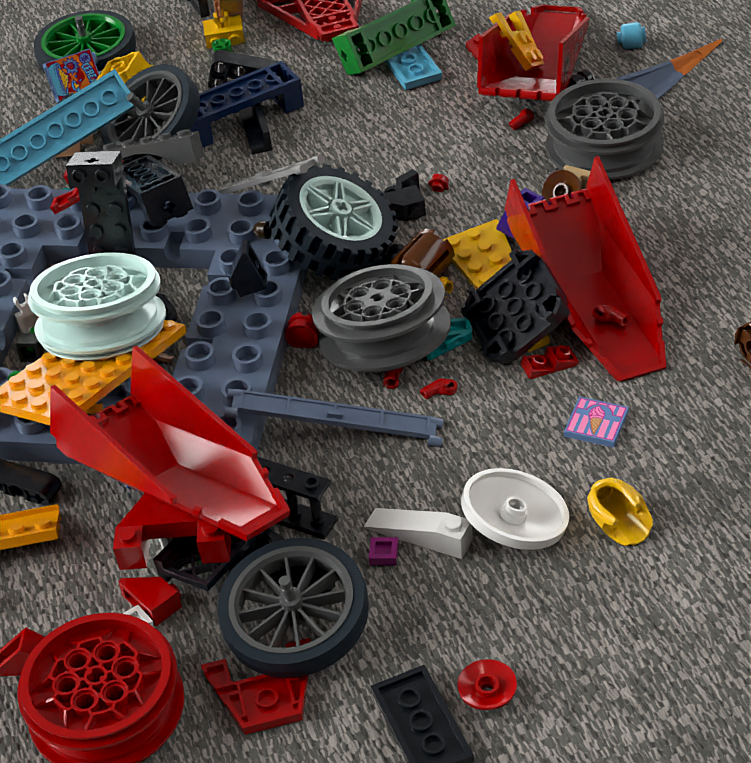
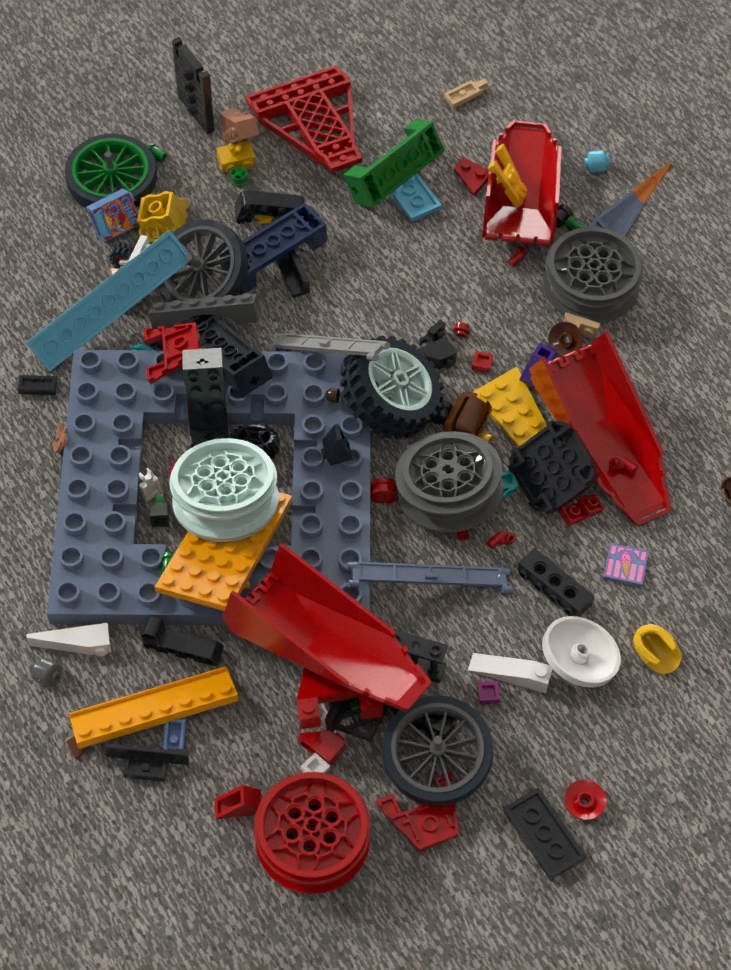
camera: 15 degrees left, 15 degrees up
(141, 31) = (157, 153): none -> green pin
(174, 278) = (260, 436): none -> black gear
(456, 213) = (482, 361): none -> red plate
(497, 434) = (552, 574): none -> black brick

